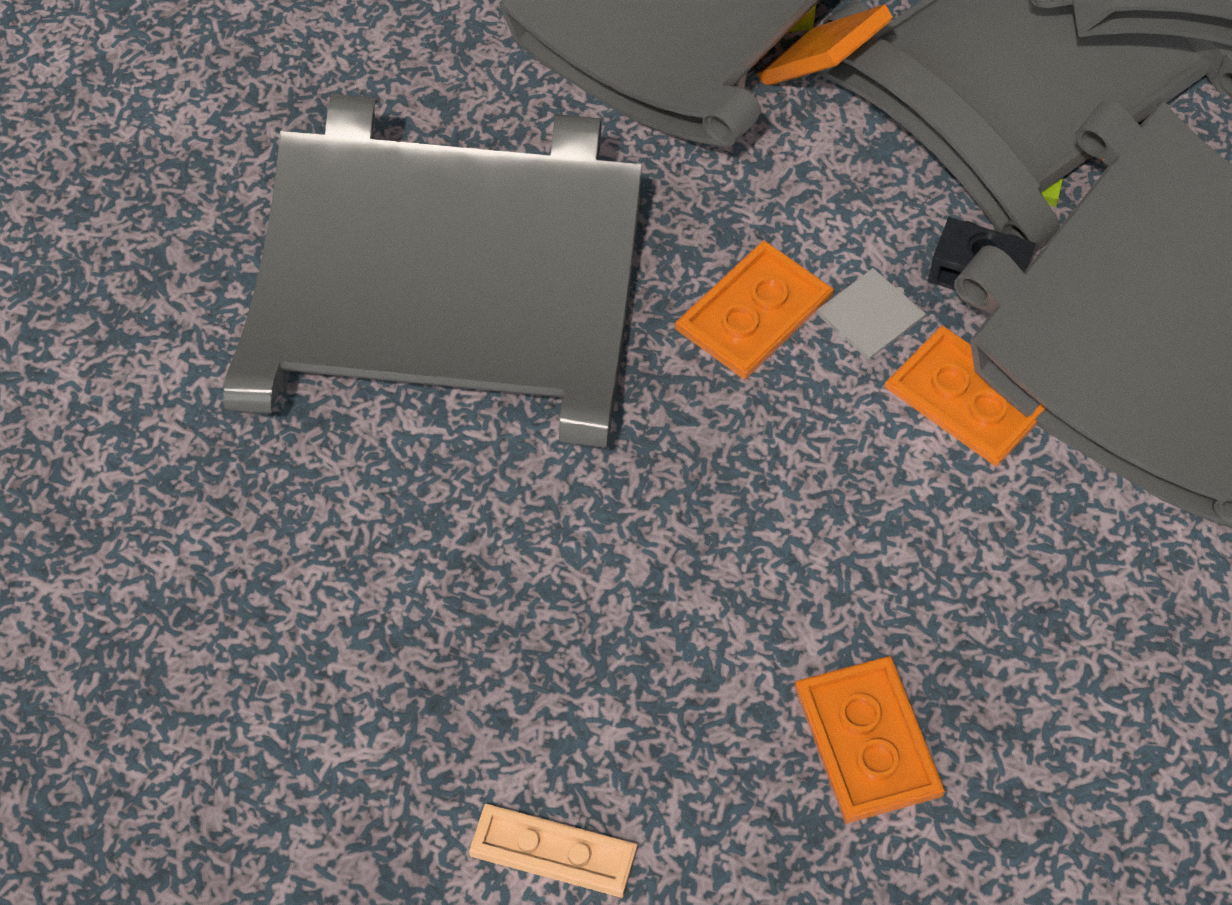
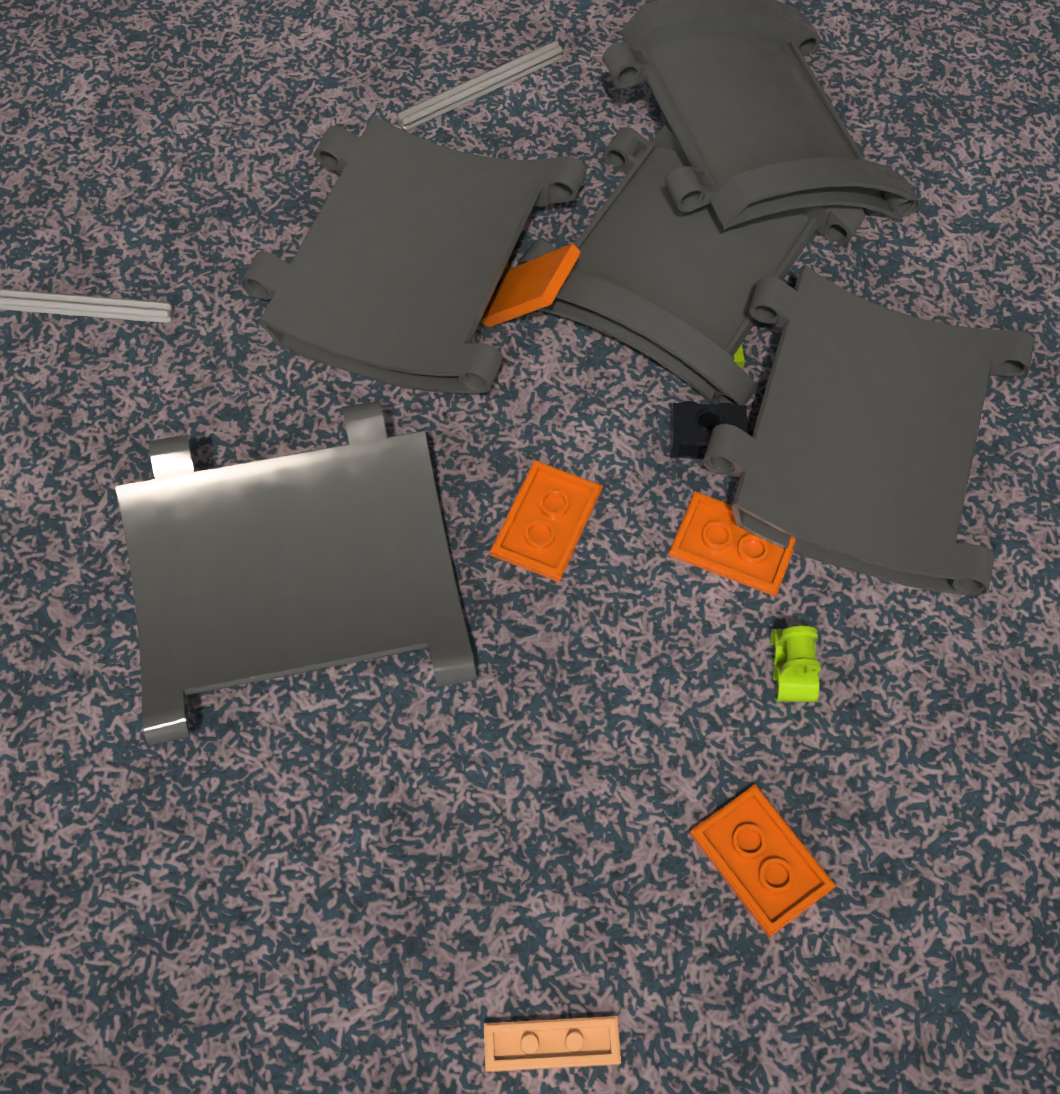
camera: 20 degrees left, 5 degrees up
(870, 313) = (636, 497): light grey piece -> none
(988, 538) = (796, 664): none -> lime piece

